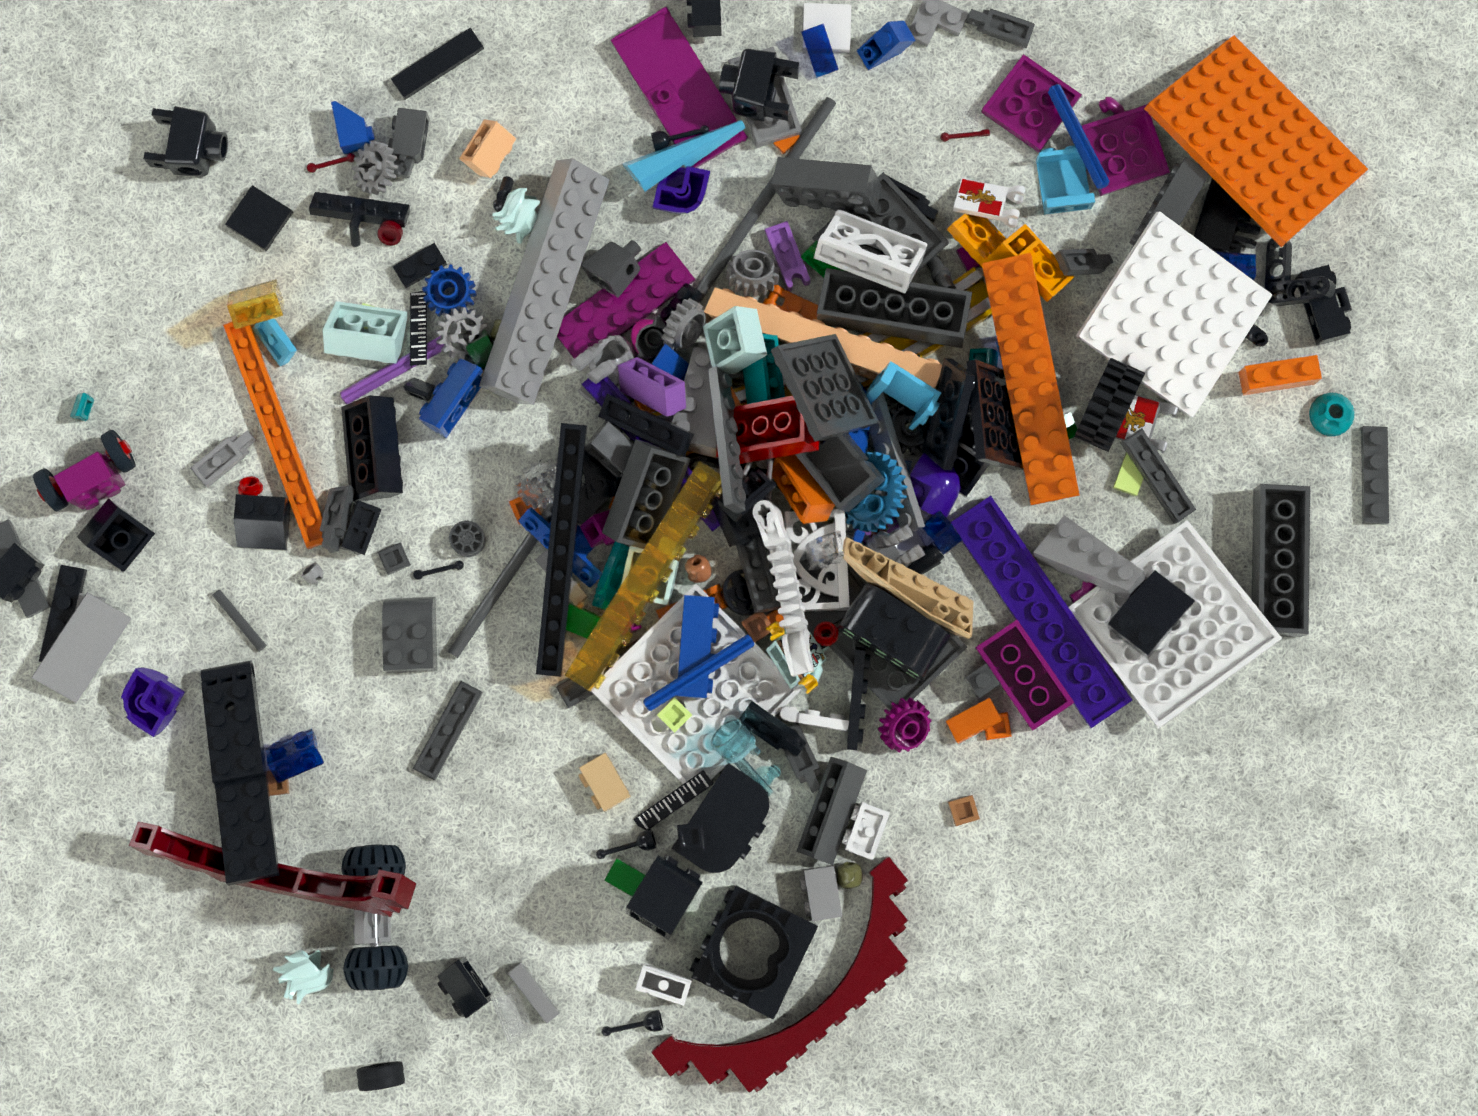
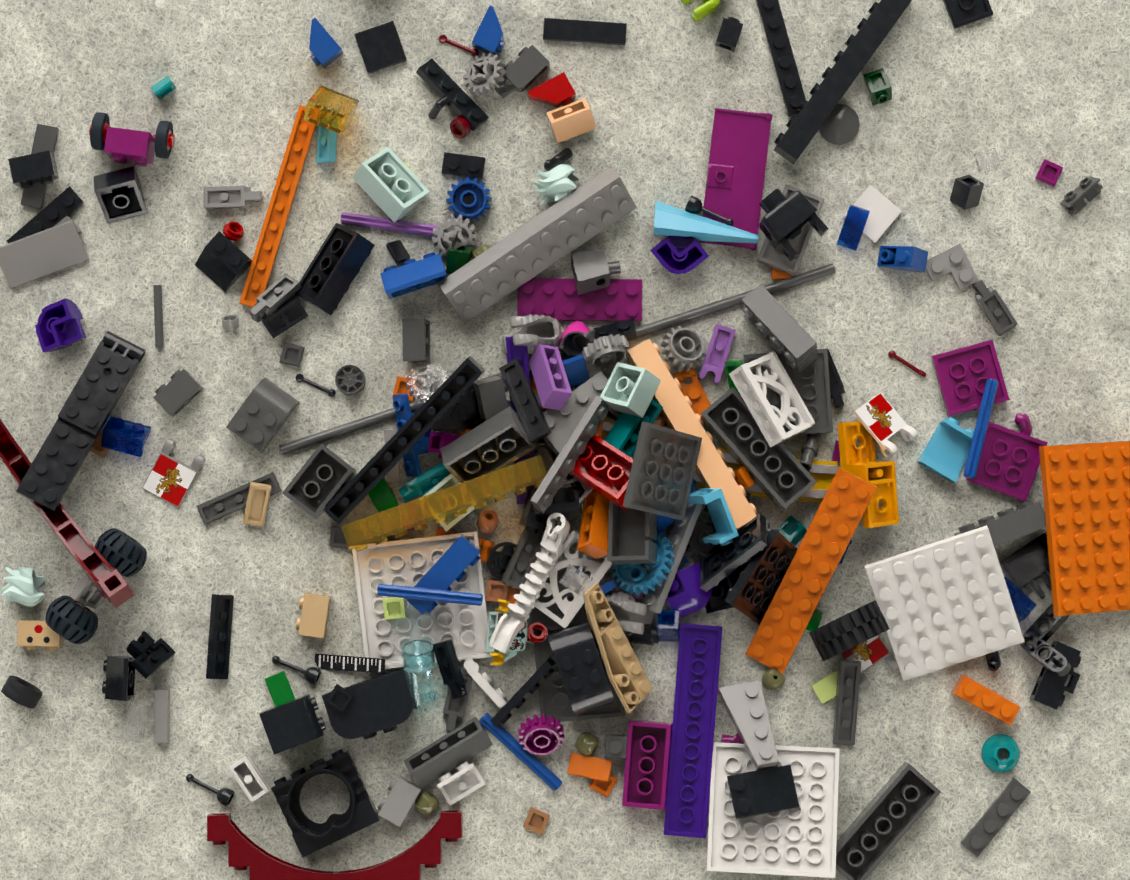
camera: 35 degrees right, 5 degrees up
(204, 255) = (322, 45): none -> blue slope
(312, 675) = (177, 392): none -> dark grey brick
(353, 1008) = (37, 633): none -> tan brick
(367, 761) = (170, 477): none -> flag
(418, 329) = (428, 209): black sticker -> none
(452, 136) = (554, 92): none -> red slope
(469, 721) = (257, 504): none -> tan tile
(475, 944) = (149, 655): none -> black plate
(500, 455) = (416, 340): none -> dark grey hinge
(511, 652) = (319, 481): none -> dark grey brick
(530, 873) = (219, 636): none -> black plate
(902, 342) = (743, 478): none -> orange tile
(904, 758) = (524, 755): none -> blue axle
(953, 701) = (586, 743): none -> olive piece
(1075, 507) = (769, 682): none -> olive piece
(1082, 261) = (912, 517): dark grey hinge -> none

